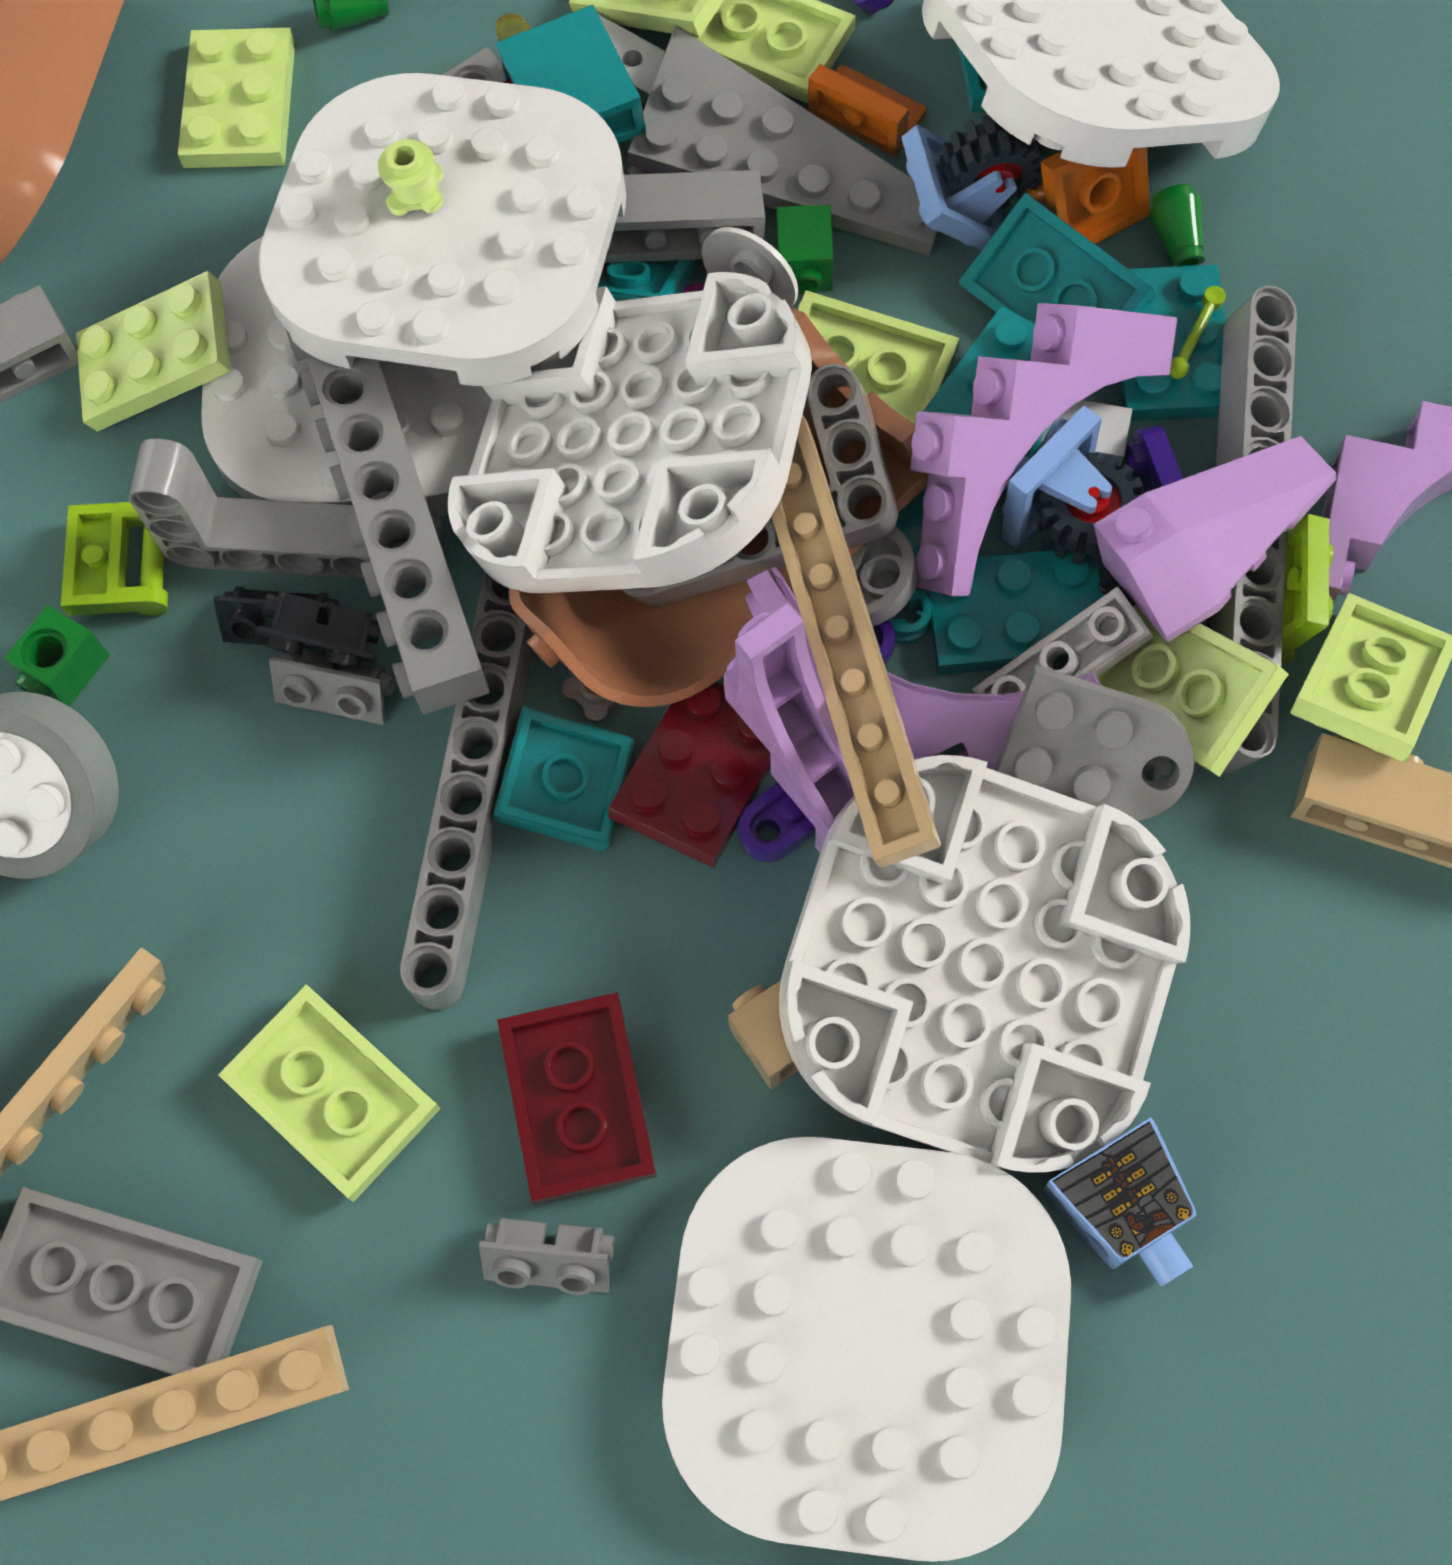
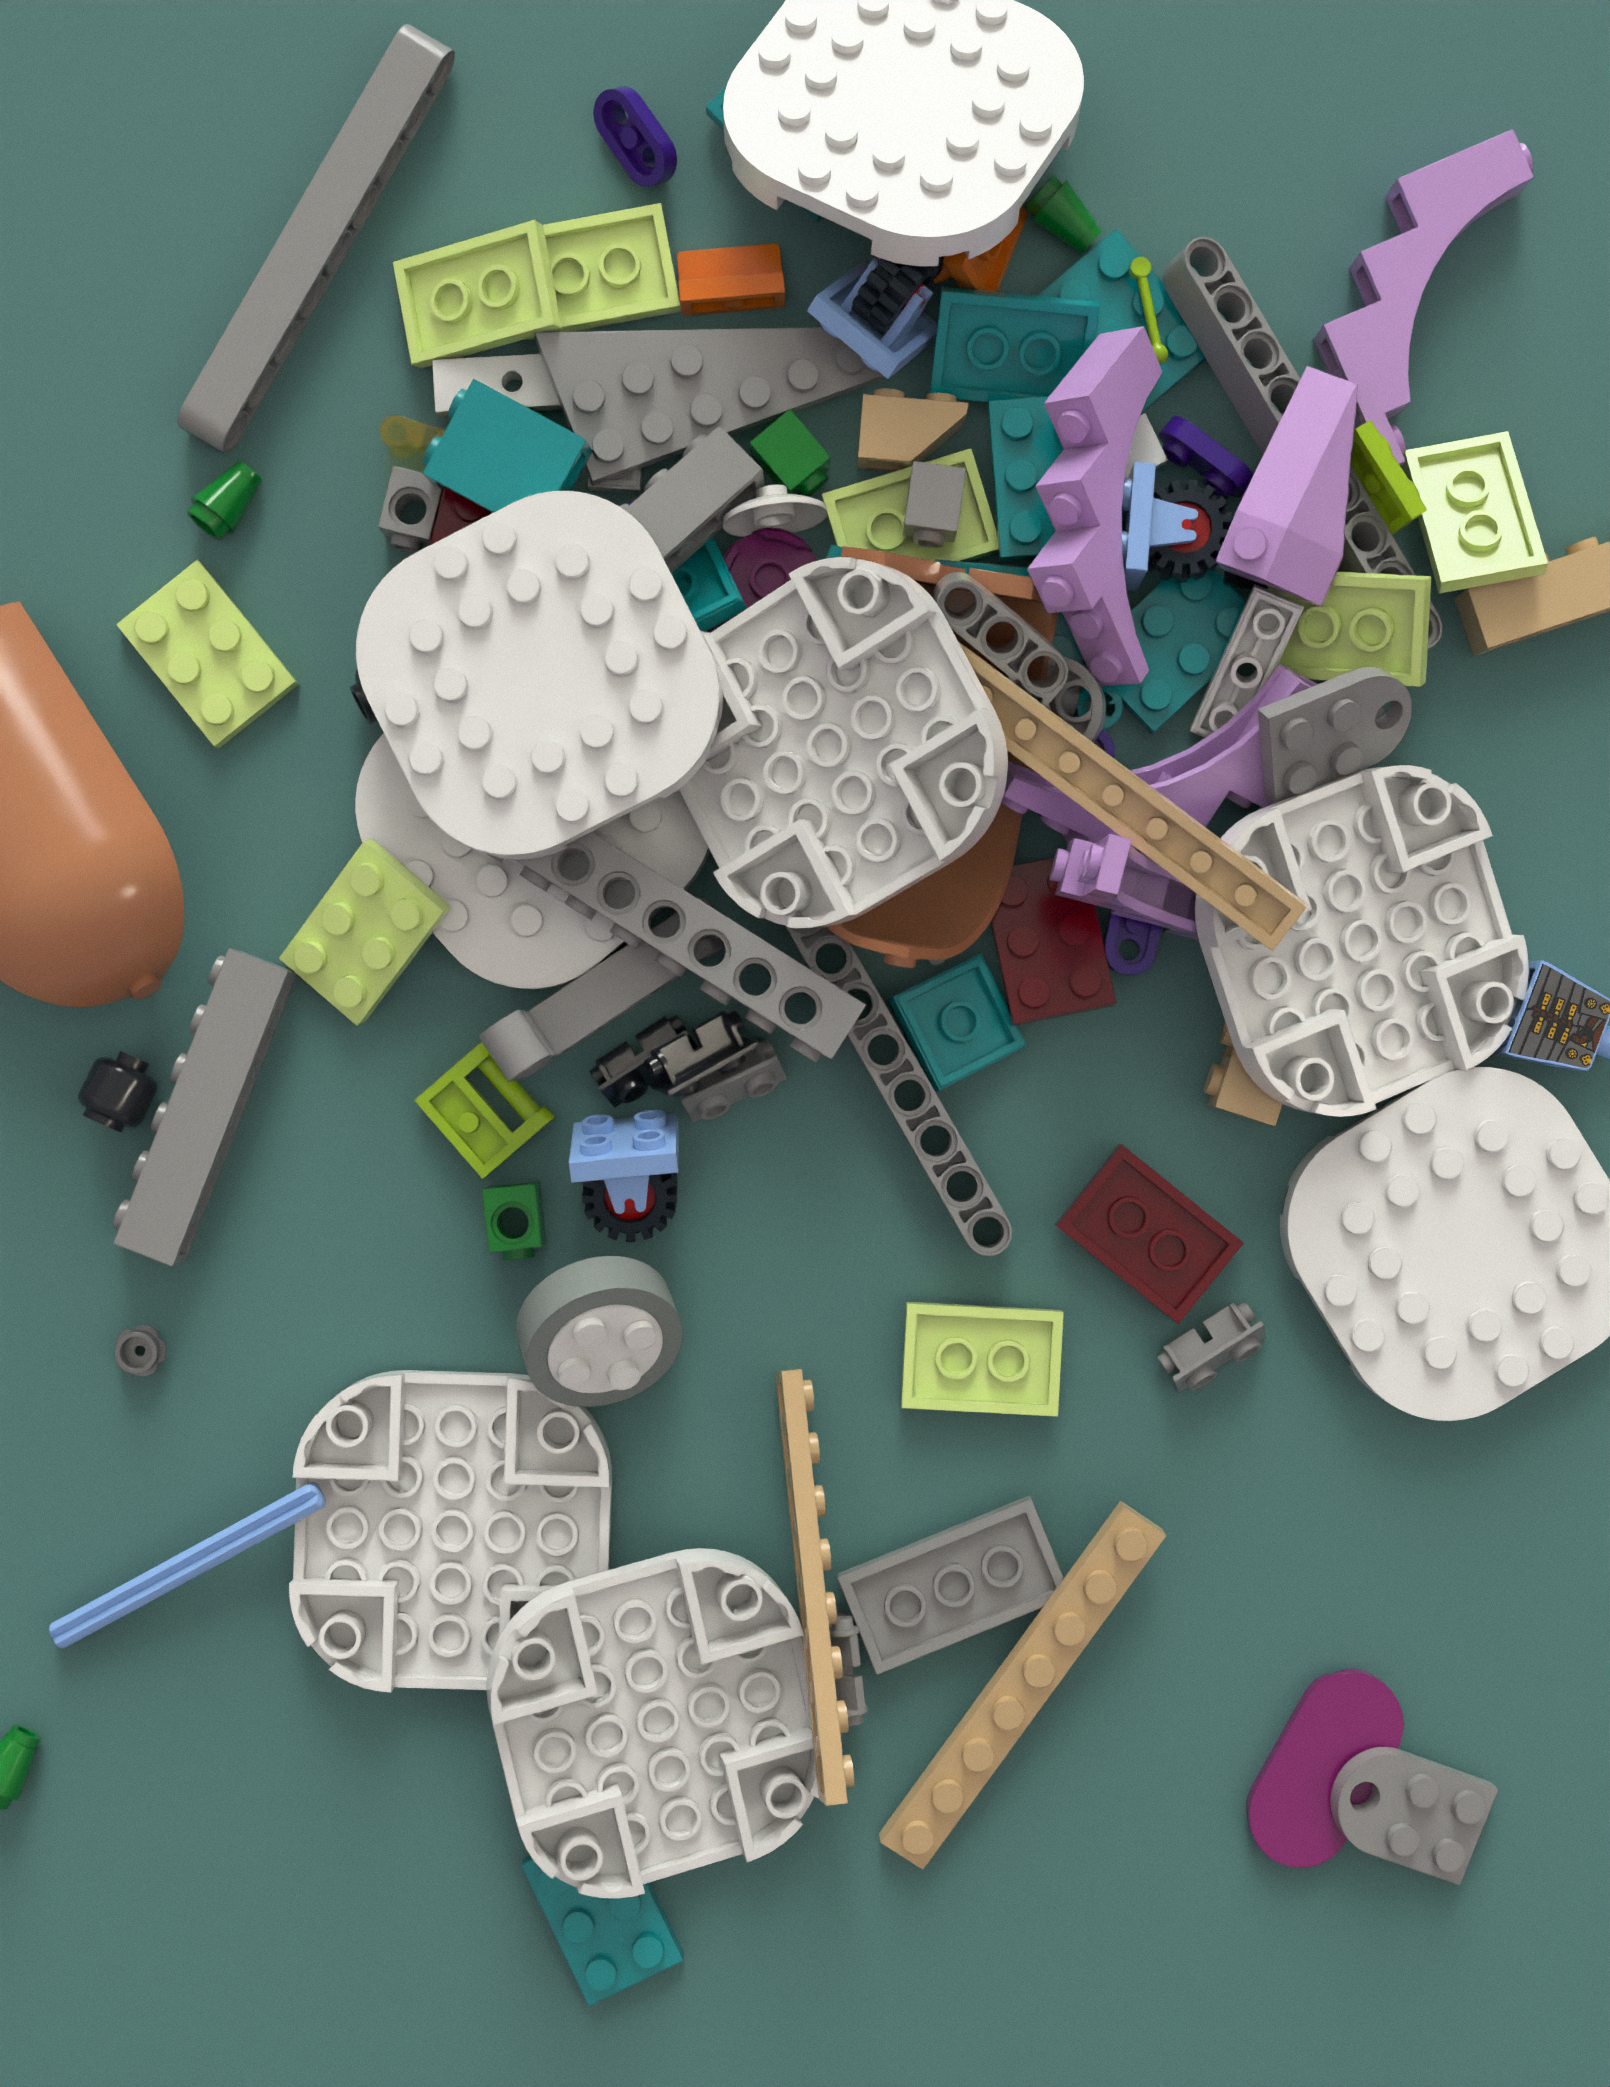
camera: 45 degrees left, 20 degrees up
(170, 689) = (627, 1171): none -> light blue plate
(412, 175) = (518, 672): yellowish green brick -> none
(889, 344) = (933, 503): none -> light grey brick
(918, 289) = (905, 429): none -> tan slope

